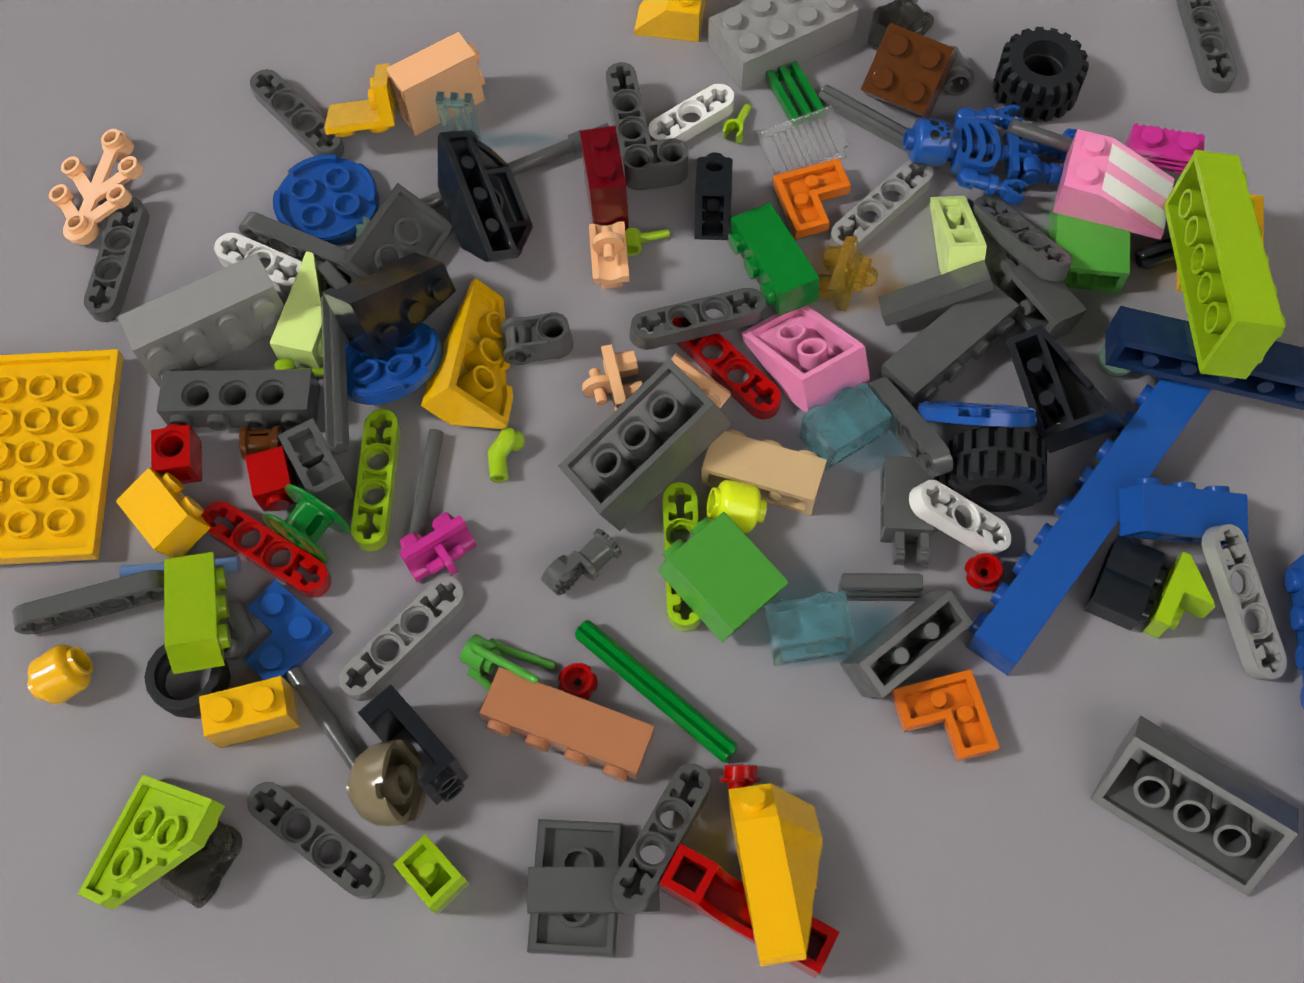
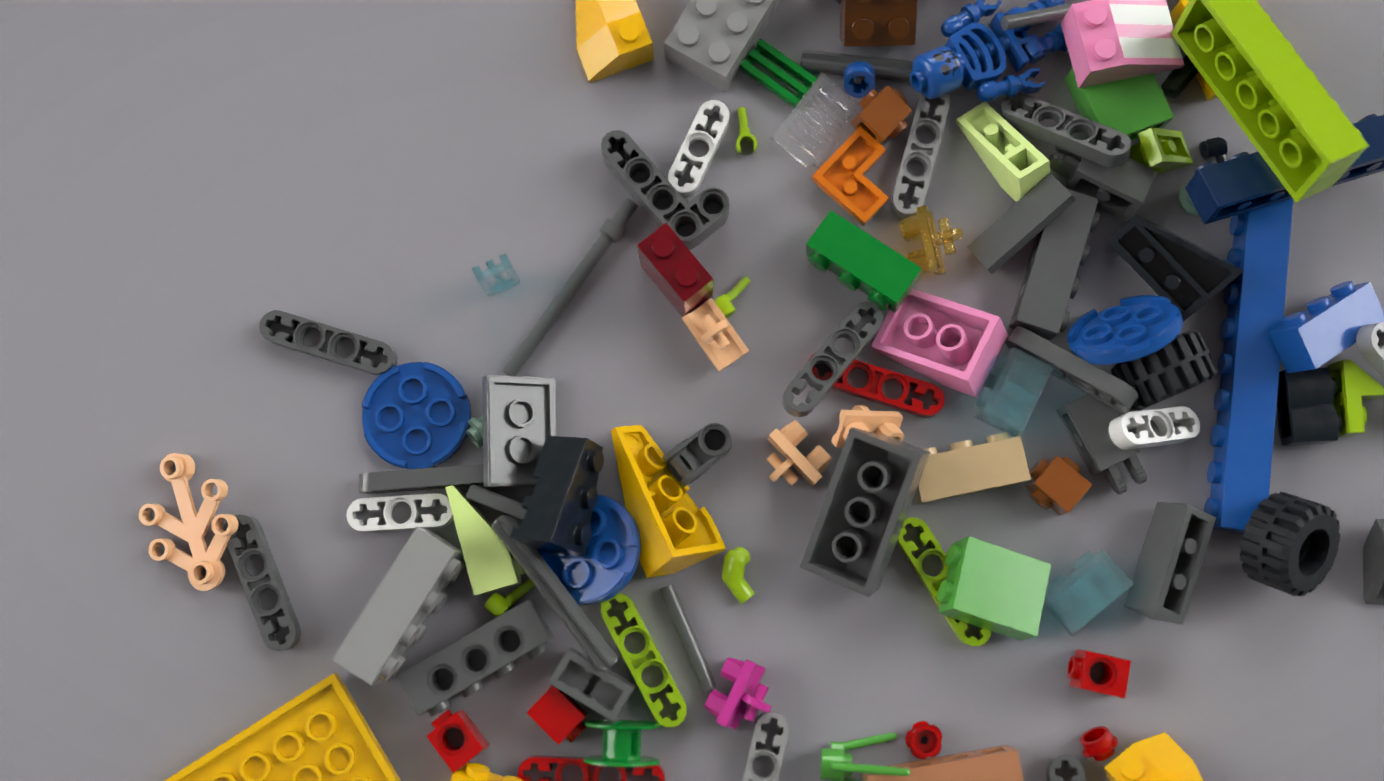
camera: 30 degrees left, 15 degrees up
(259, 440) = (524, 684): reddish brown bush -> none
(373, 114) = (397, 311): yellow bracket -> none
(442, 68) = (450, 246): light nougat brick -> none
(481, 197) = (572, 347): black wedge -> none
(588, 561) = (871, 630): dark grey connector -> none
(656, 691) = (989, 710): green axle -> none
(713, 182) = (773, 225): black torso -> none
(739, 501) = (964, 516): neon yellow head -> none
(781, 728) = (1114, 677): none -> red brick
(840, 526) = (1057, 484): none -> dark orange brick
(851, 125) = (851, 73): none -> blue bush
(864, 157) = (882, 113): none -> dark orange brick
(881, 586) = (1119, 521): dark grey tile -> none
(956, 704) = (1228, 587): orange plate -> none
(988, 563) = (1197, 451): red plate -> none
(1055, 699) = (1290, 543): none -> black tyre
(1101, 297) = (1161, 150): none -> lime slope

